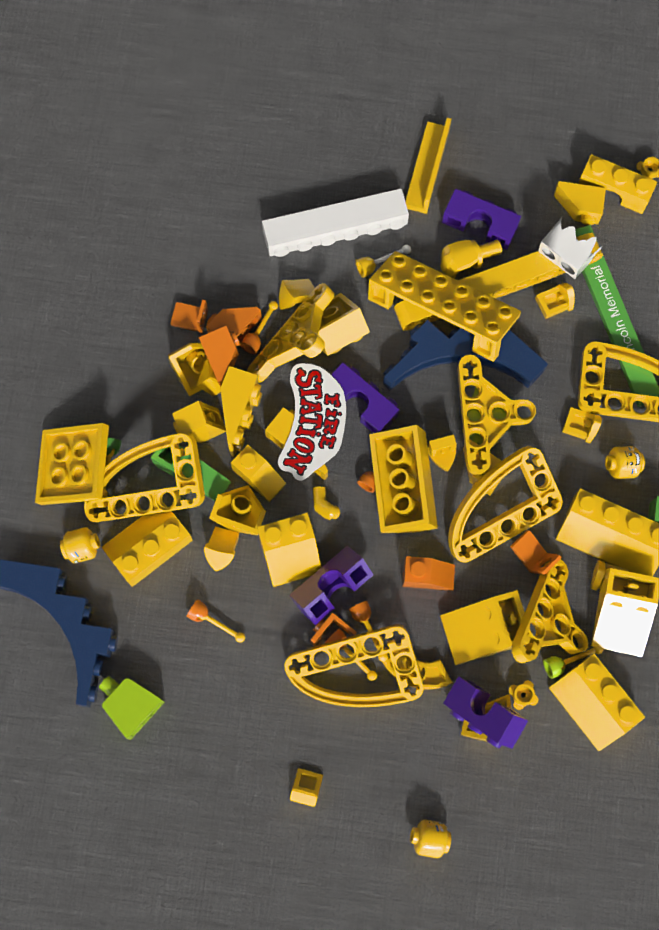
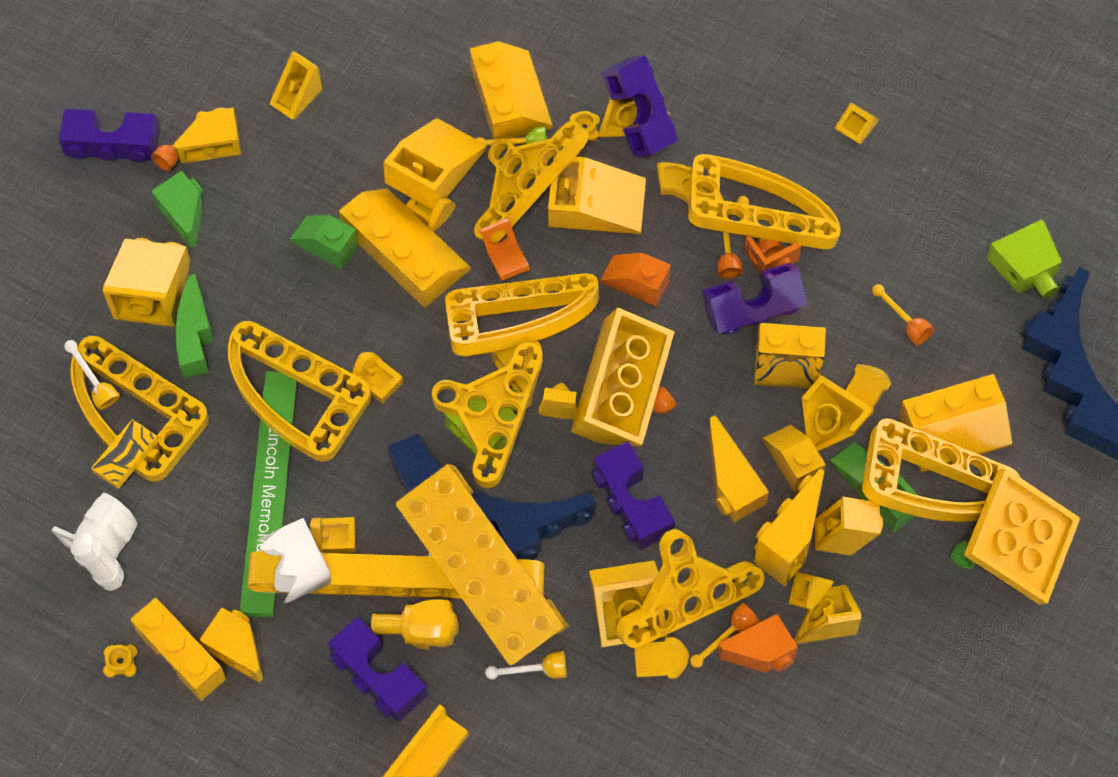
camera: 155 degrees left, 10 degrees down
(79, 545) = (1038, 448): yellow head -> none
(190, 316) = (811, 681): orange bracket -> none
(220, 350) = (792, 596): orange slope -> none
(317, 421) = (702, 475): sticker -> none
(324, 507) = (730, 395): yellow arm -> none
(335, 223) = (572, 736): white brick -> none
(430, 838) = (744, 29): yellow head -> none
(625, 462) = (351, 312): yellow head -> none

